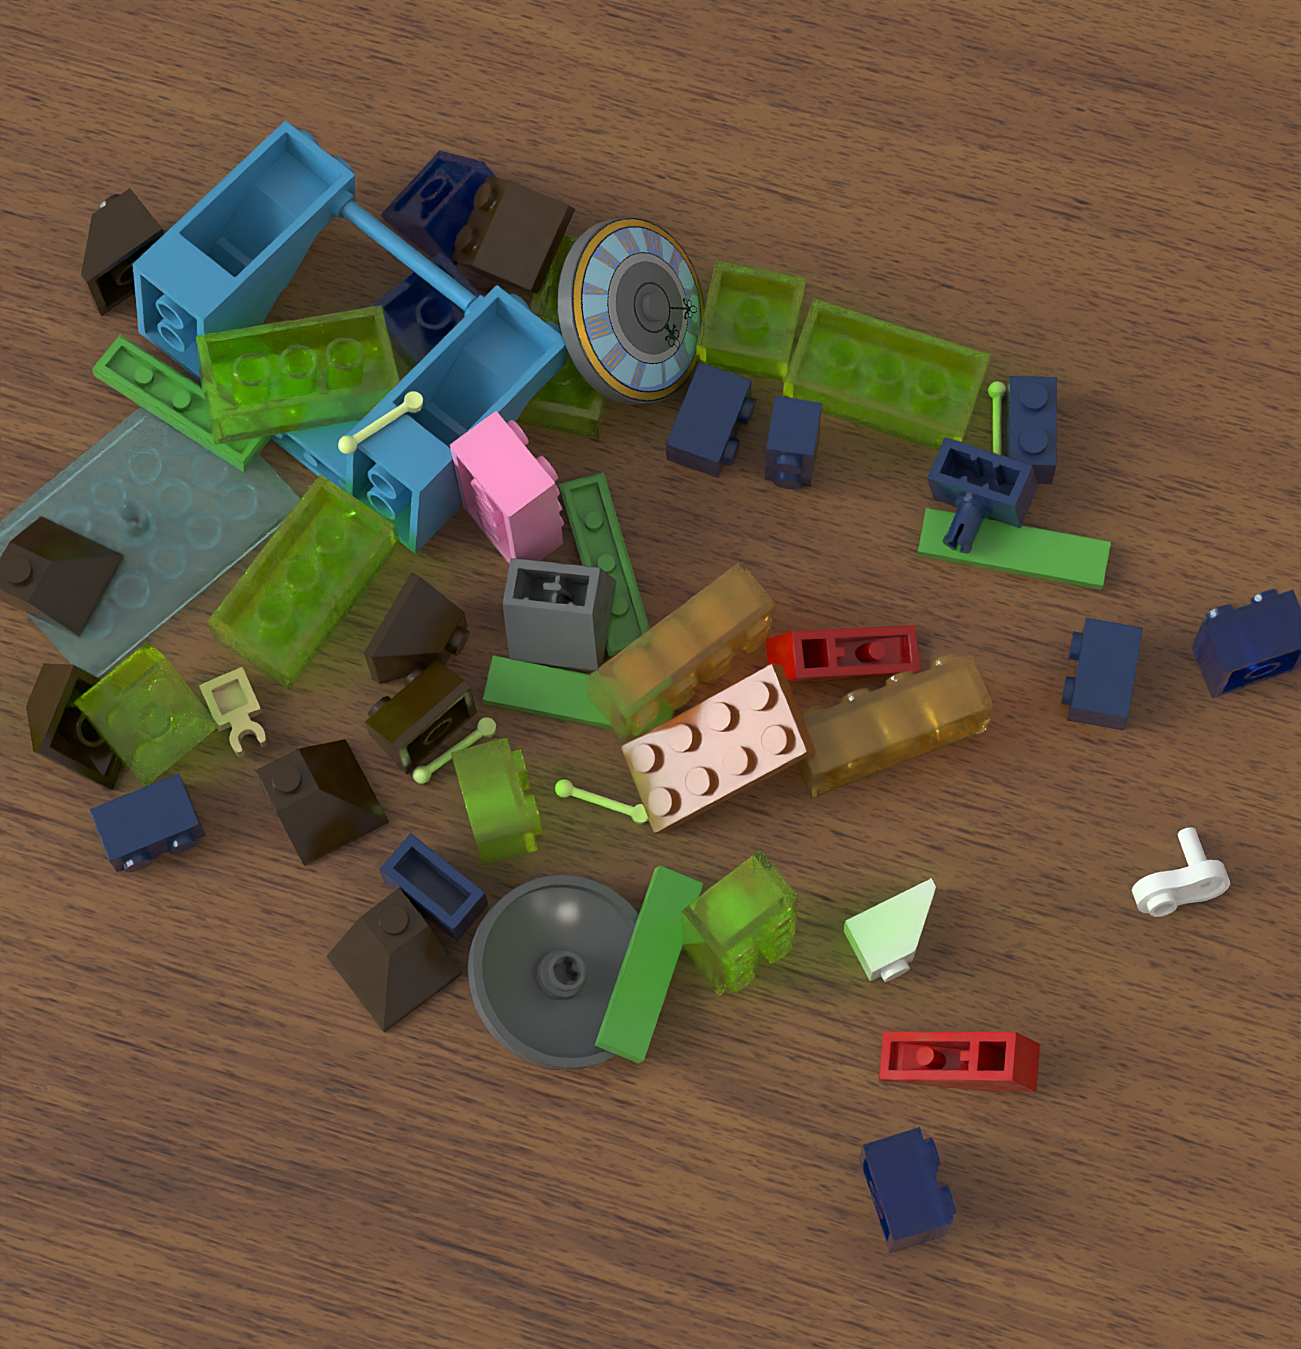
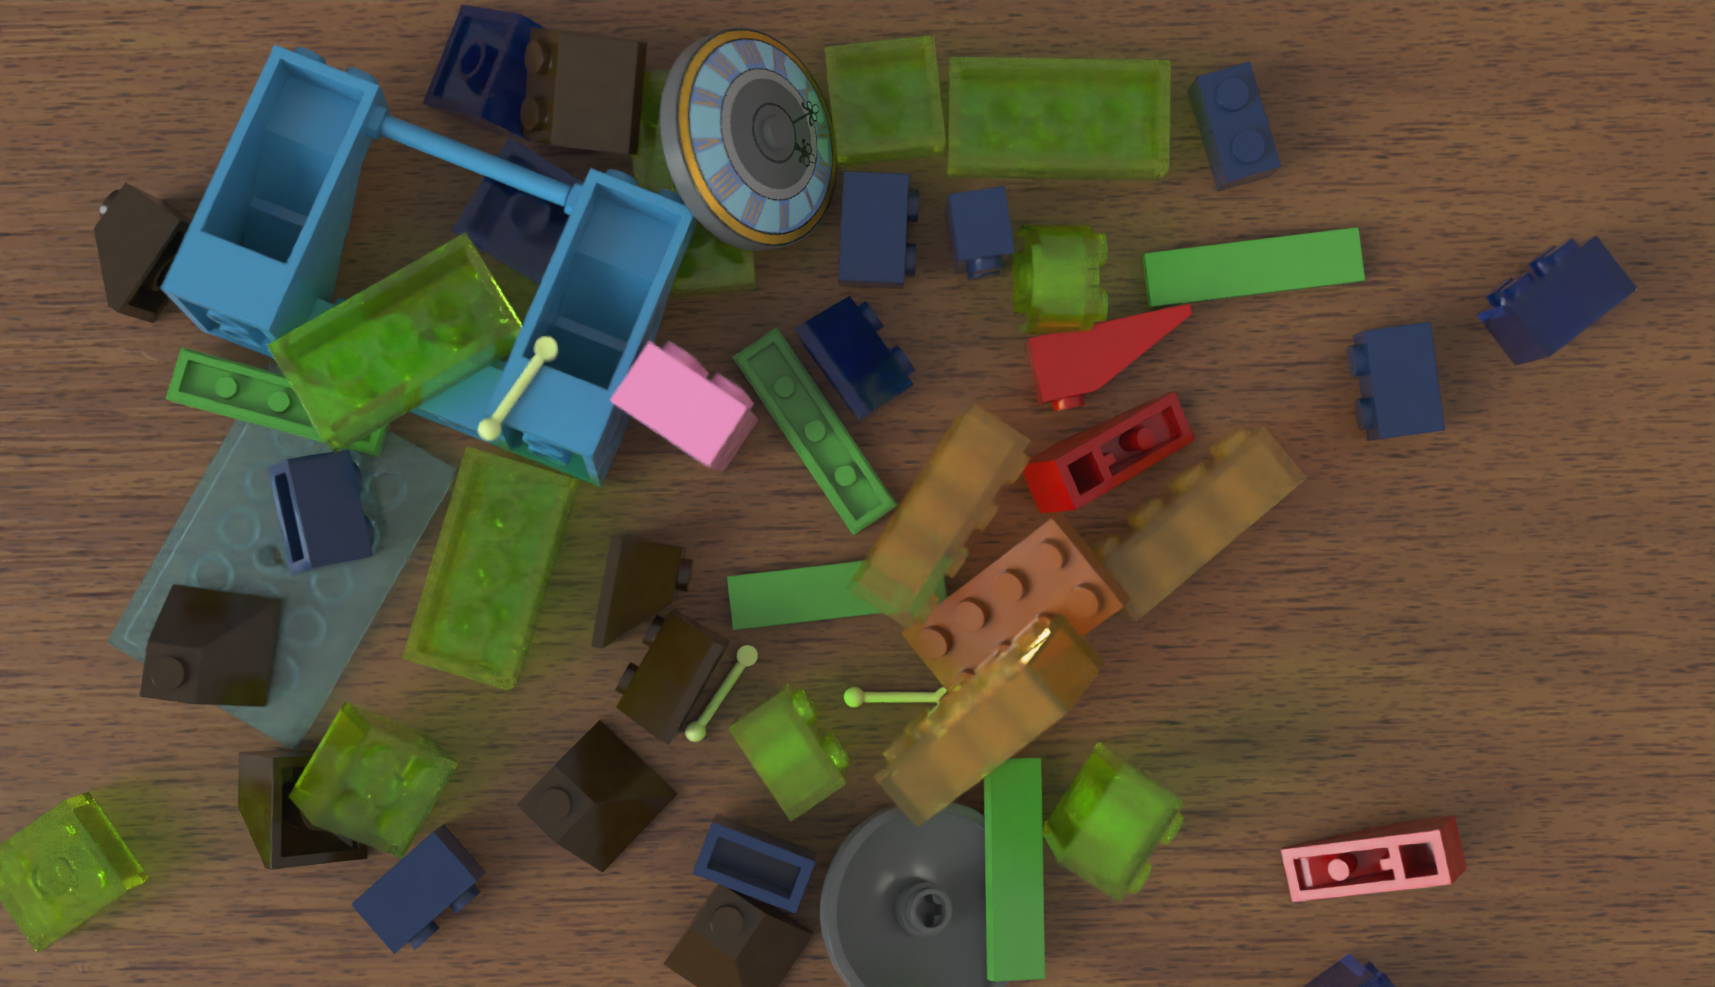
camera: 20 degrees left, 15 degrees up
(184, 490) = (321, 511): none -> dark blue piece
(232, 705) = (463, 724): tan plate -> none
(557, 613) = (784, 513): dark grey slope -> none
(658, 512) = (855, 357): none -> clear blue slope
(665, 813) = (987, 717): none -> clear yellow brick
(844, 500) = (1059, 278): none -> clear neon green brick
(854, 573) = (1082, 362): none -> red slope
(890, 932) = (1260, 743): slope -> none
(981, 488) = (1201, 216): dark blue brick -> none
(997, 391) = (1178, 91): yellowish green hinge -> none
(1200, 881) = (1535, 607): white piece -> none

